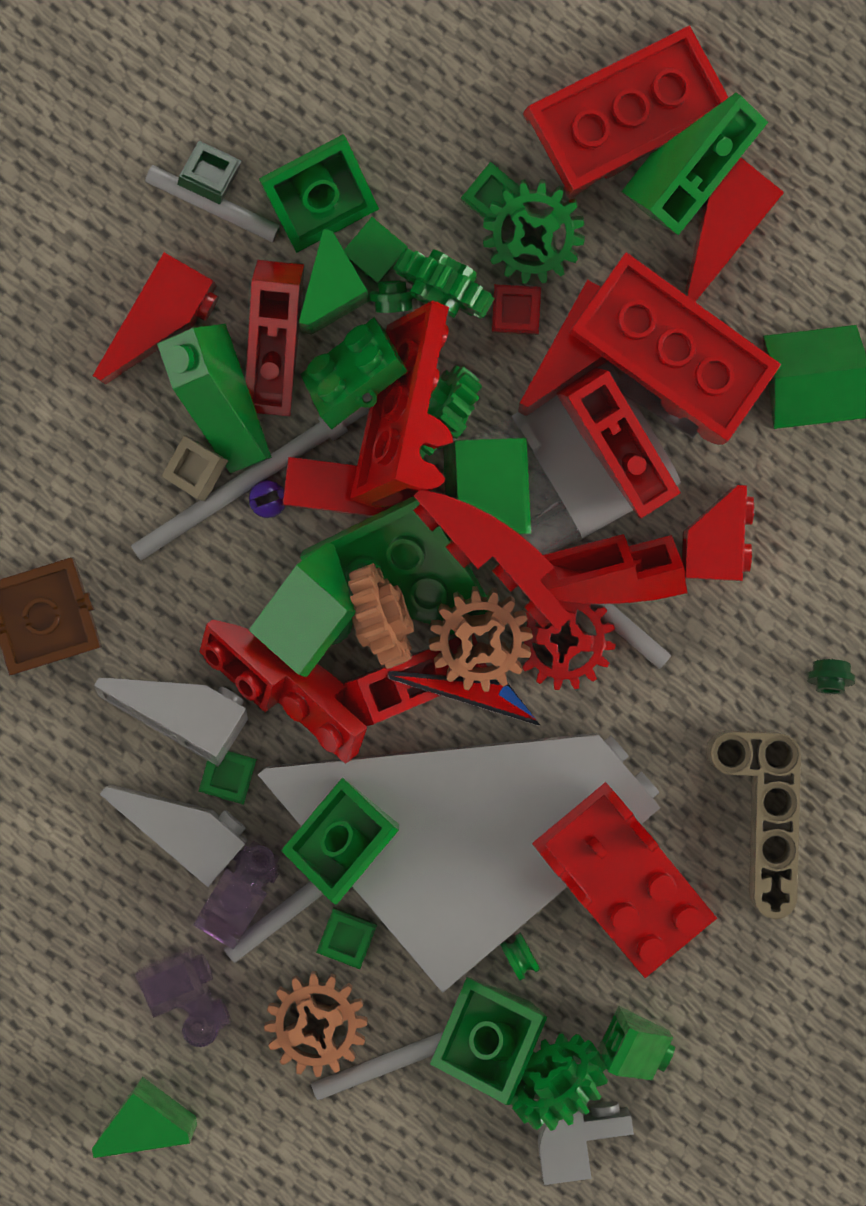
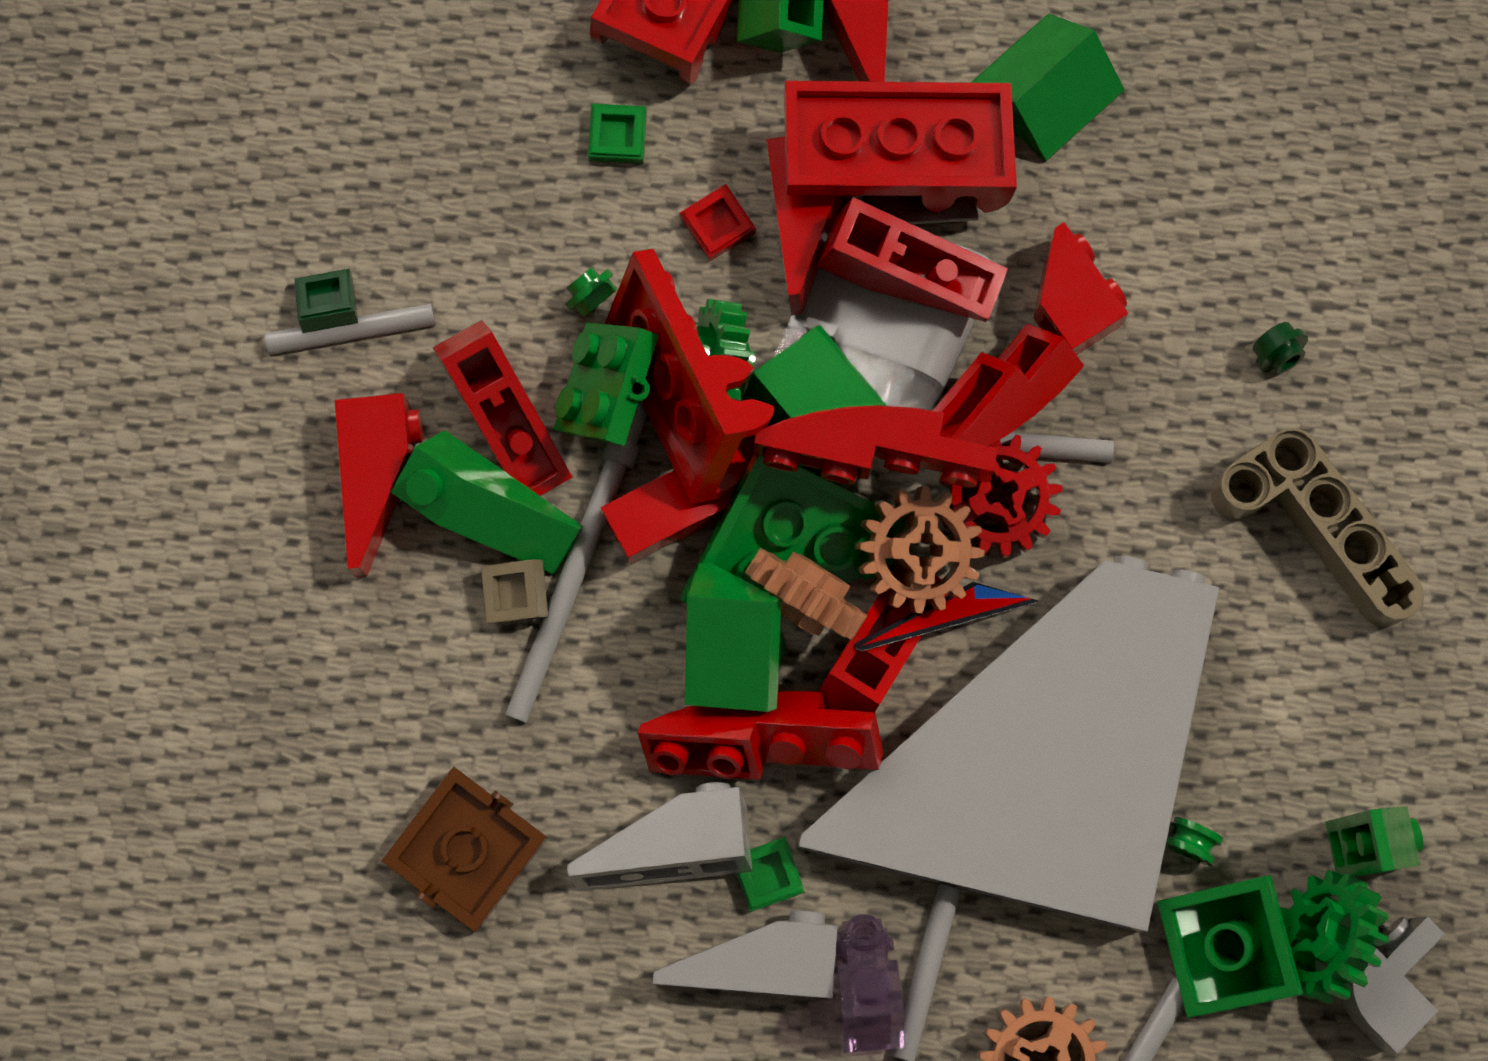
camera: 35 degrees left, 10 degrees down
(272, 508) = (618, 578): dark purple hinge -> none
(319, 193) = (446, 243): green slope -> none
(332, 288) = (530, 313): green slope -> none
(340, 840) = (932, 846): green slope -> none
(346, 938) = (1007, 952): green tile -> none
(374, 250) = (540, 262): green tile -> none
(443, 281) = (630, 228): green gear -> none
(517, 244) = (690, 111): green gear -> none
(624, 880) = (1238, 683): red hinge -> none

